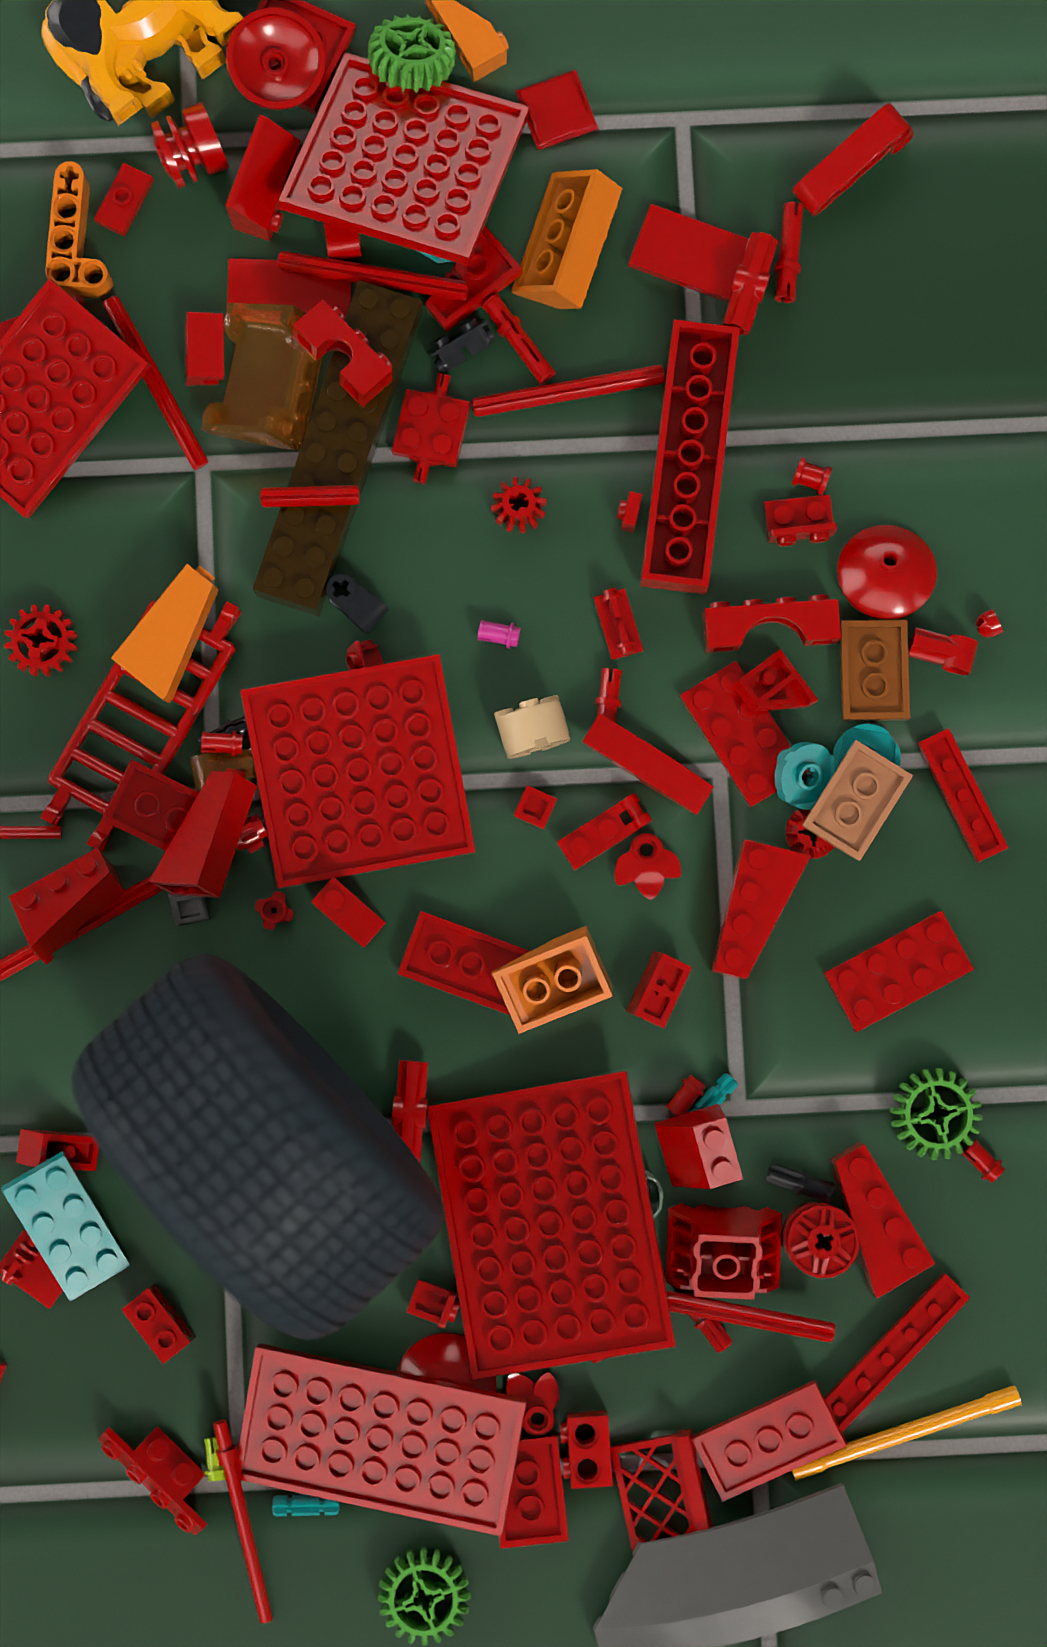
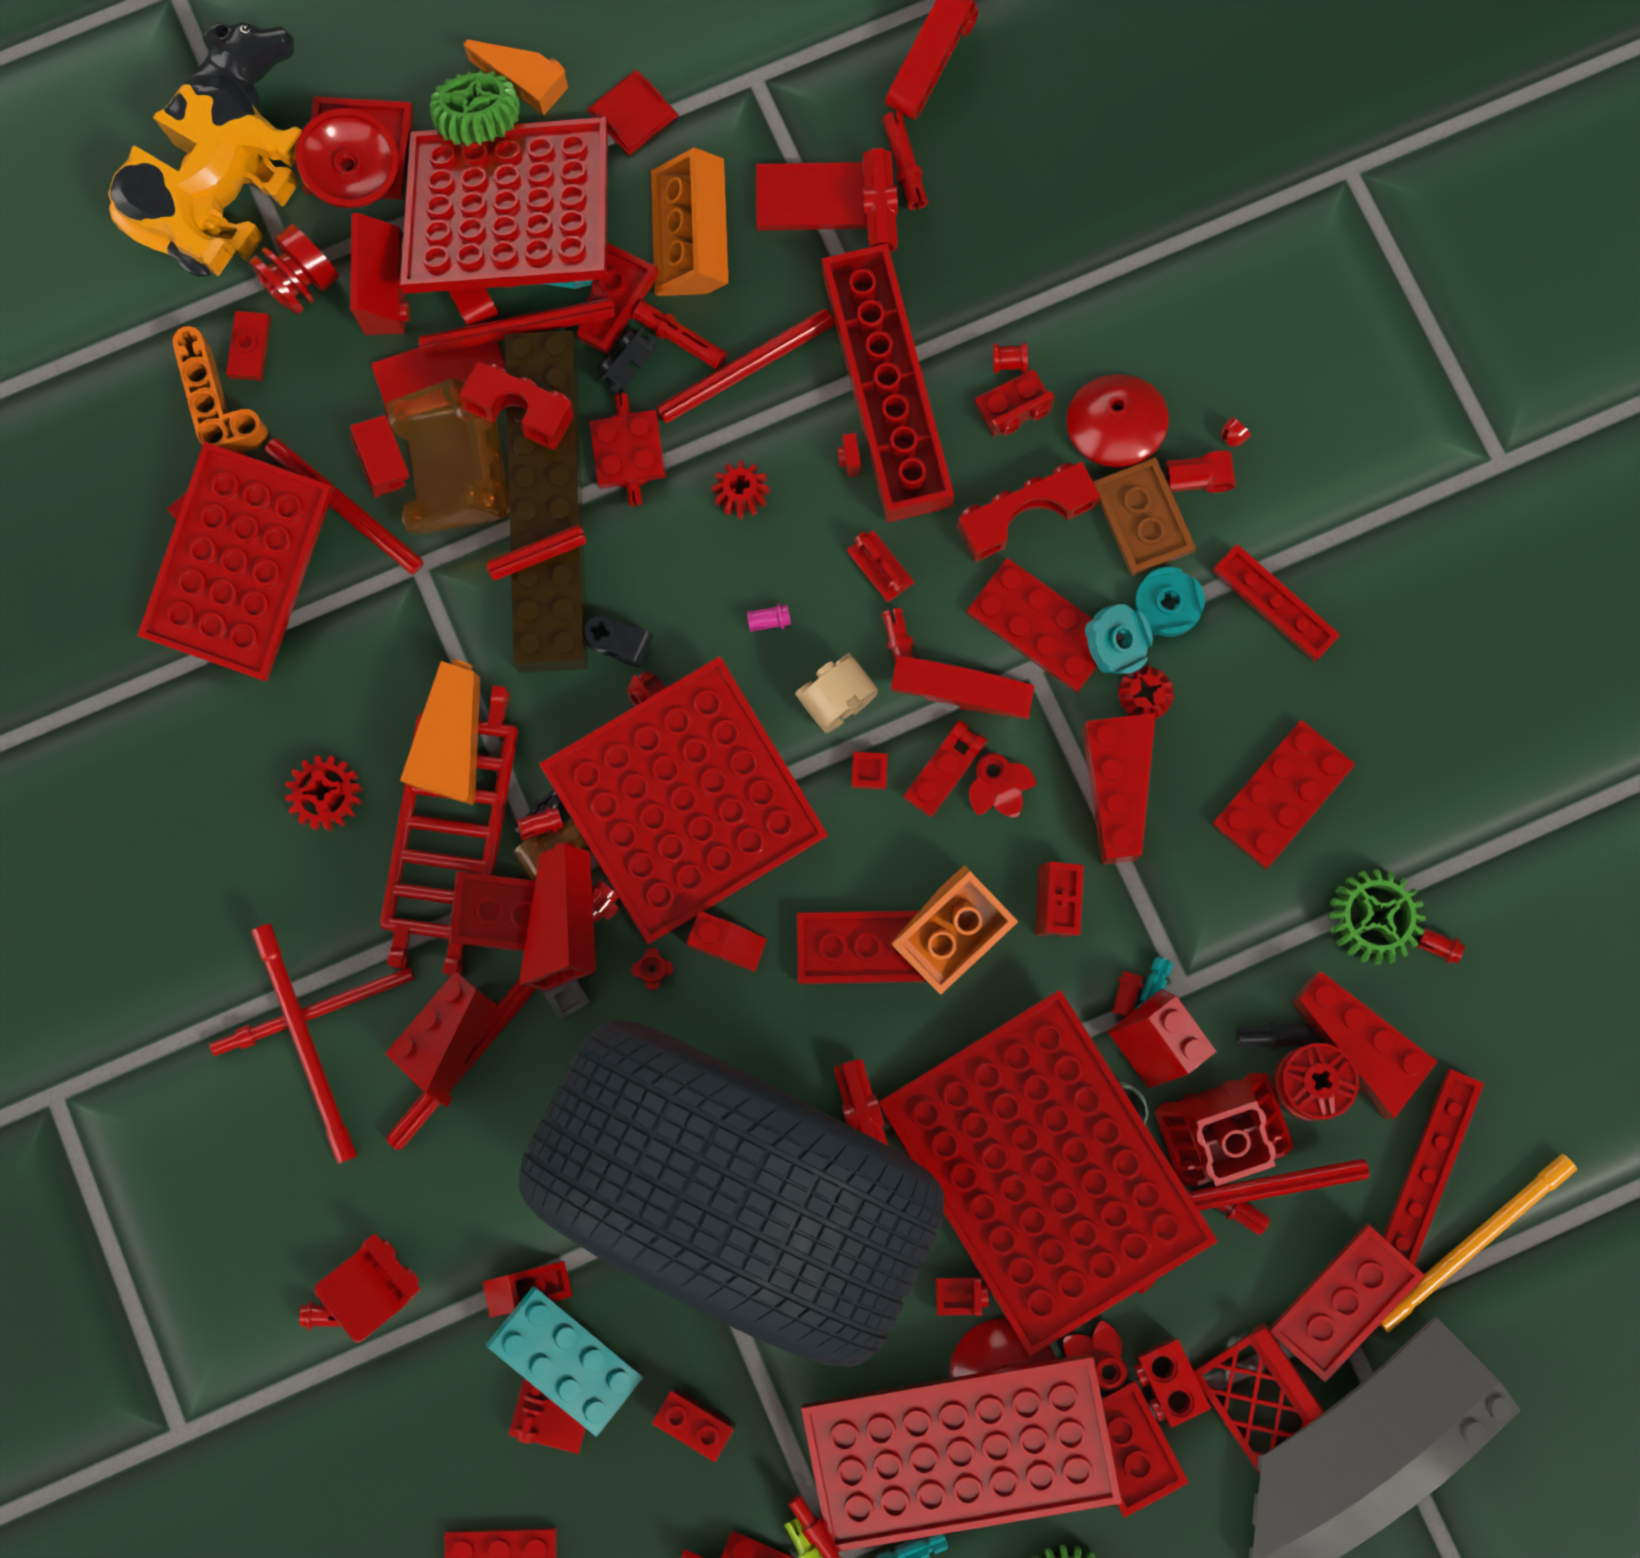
camera: 15 degrees left, 5 degrees down
(774, 686) = (1054, 567): red wing -> none
(857, 800) = (1178, 644): nougat plate -> none

